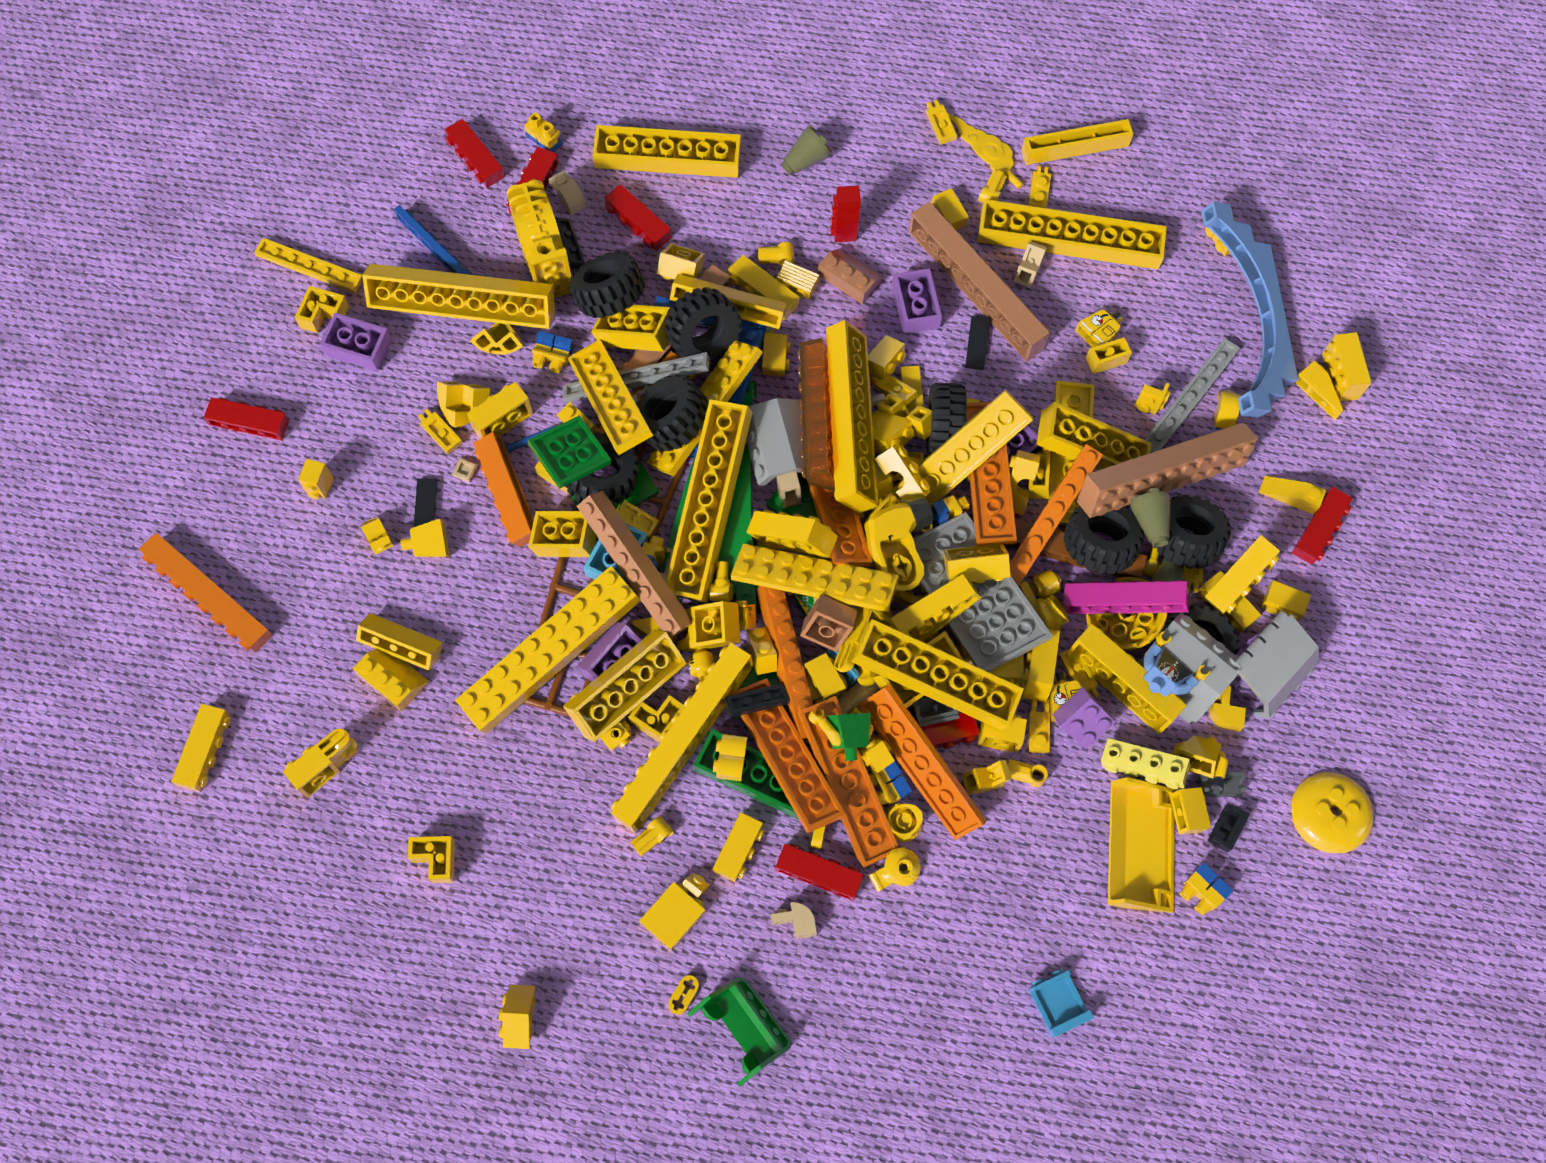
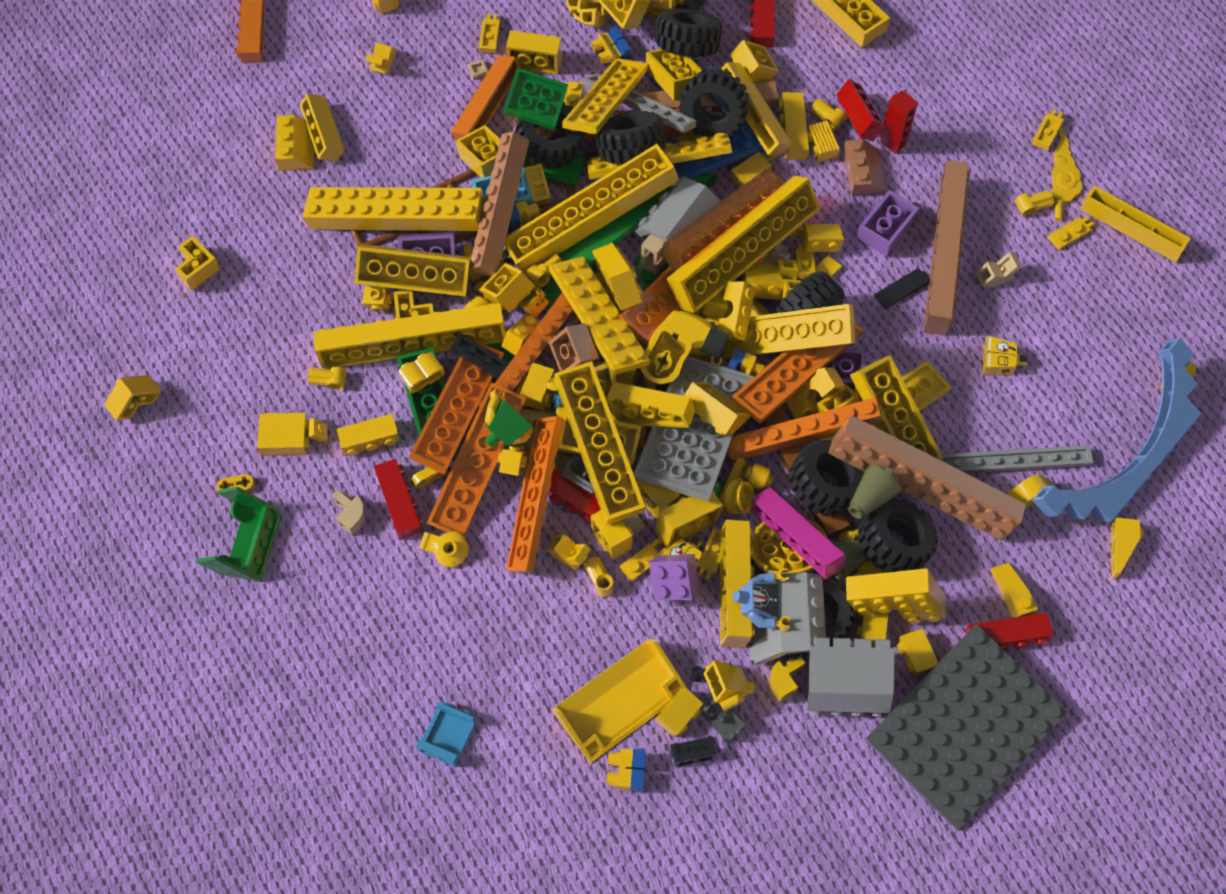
camera: 50 degrees right, 5 degrees down
(201, 747) = (151, 84): yellow brick -> none
(321, 762) = (198, 151): yellow brick -> none
(425, 501) = (430, 69): black tile -> none
(427, 540) = (407, 86): yellow torso -> none
(458, 399) = (522, 20): yellow brick -> none
(802, 230) = (860, 110): none -> red brick
(806, 151) = (925, 67): olive cone -> none
(891, 784) = (505, 493): hips -> none
(904, 821) = (486, 526): yellow hat -> none
(951, 208) = (984, 188): yellow brick -> none
(1072, 234) = (1056, 279): yellow brick -> none
(1108, 355) = (984, 377): yellow brick -> none
(1145, 763) = (683, 649): light yellow brick -> none
(1152, 399) = (979, 432): yellow bracket -> none
(1315, 820) = (779, 841): yellow brick -> none
(1347, 366) = (1159, 546): yellow brick -> none
(1370, 620) = (966, 727): none -> dark grey plate

